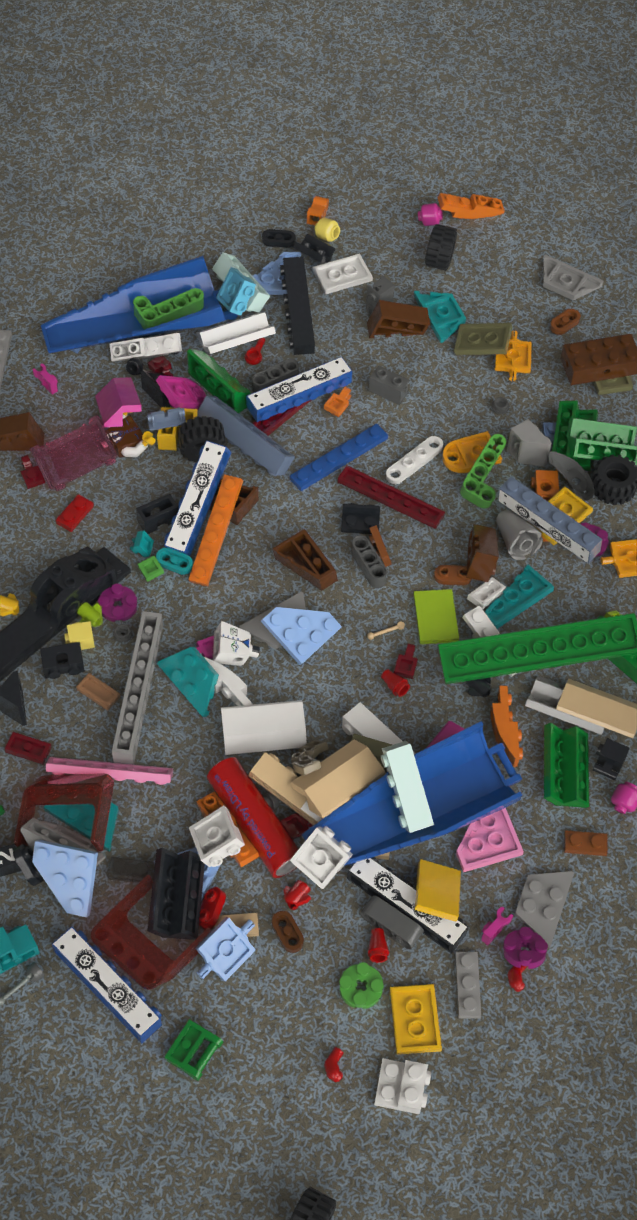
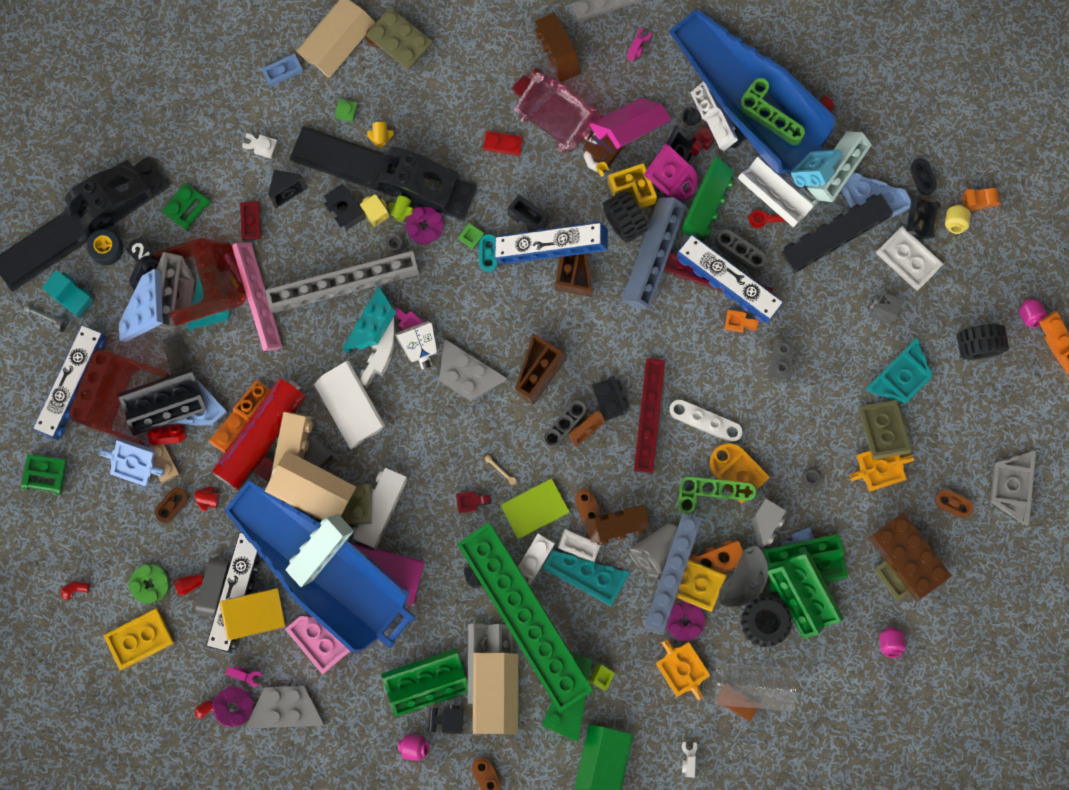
camera: 70 degrees right, 20 degrees up
(98, 691) = (330, 251): medium nougat tile -> none
(142, 544) = (493, 218): teal tile -> none
(167, 419) = (627, 174): sand blue hinge -> none
(215, 530) = (530, 274): orange plate -> none
(216, 837) = (220, 411): white plate -> none
(300, 630) = (461, 395): light blue plate -> none
(304, 761) = (323, 450): dark tan tile -> none
(322, 856) = (232, 505): white plate -> none
(338, 457) = (676, 349): blue plate -> none
(396, 683) = (445, 500): red cone -> none
(397, 319) = (870, 337): reddish brown wedge -> none
(402, 1085) = (77, 650): white plate -> none
(468, 985) = (184, 671): light grey plate -> none
(504, 728) = (434, 620): orange slope -> none
(585, 843) = (357, 726): dark orange plate -> none

